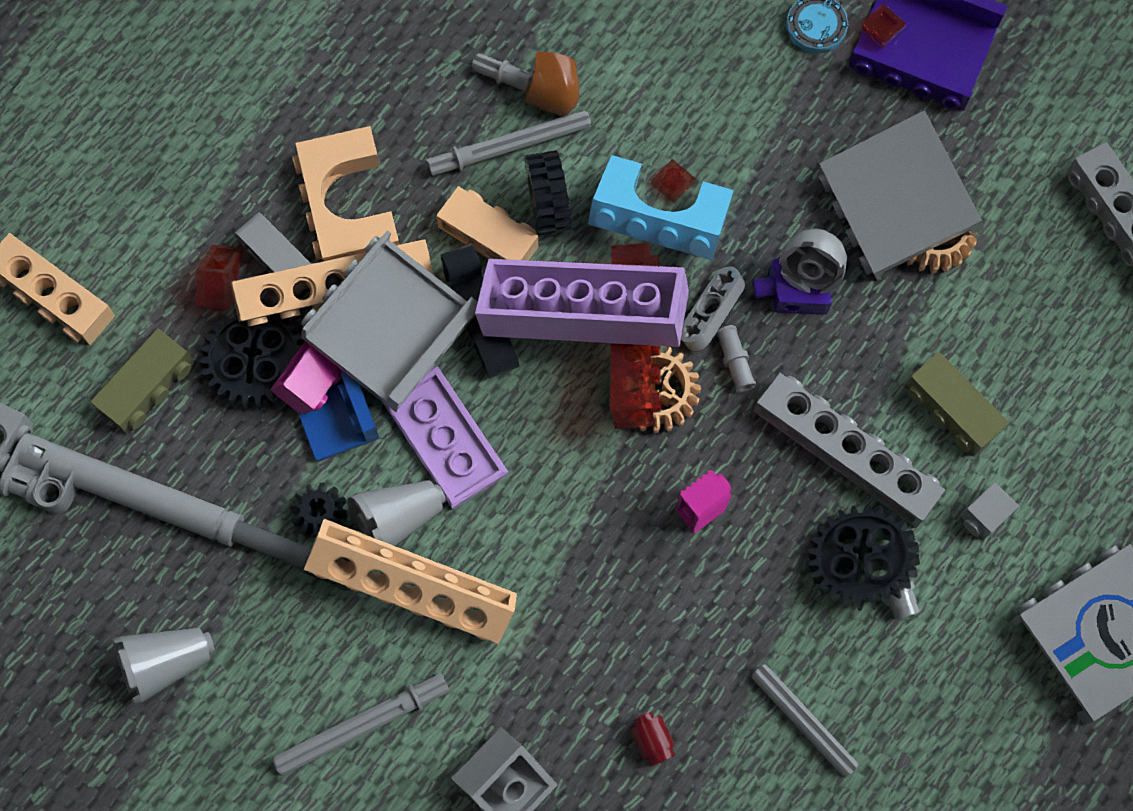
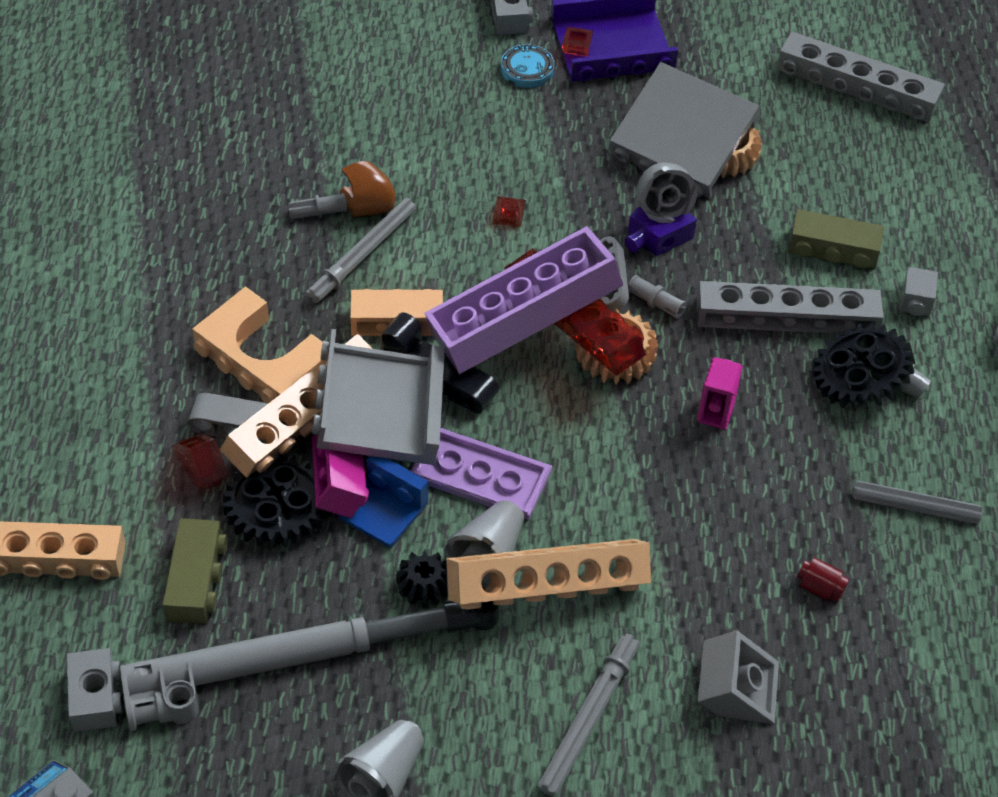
camera: 35 degrees left, 20 degrees down
(548, 192) = (427, 254): black bush -> none
(688, 231) = (491, 237): medium azure arch -> none

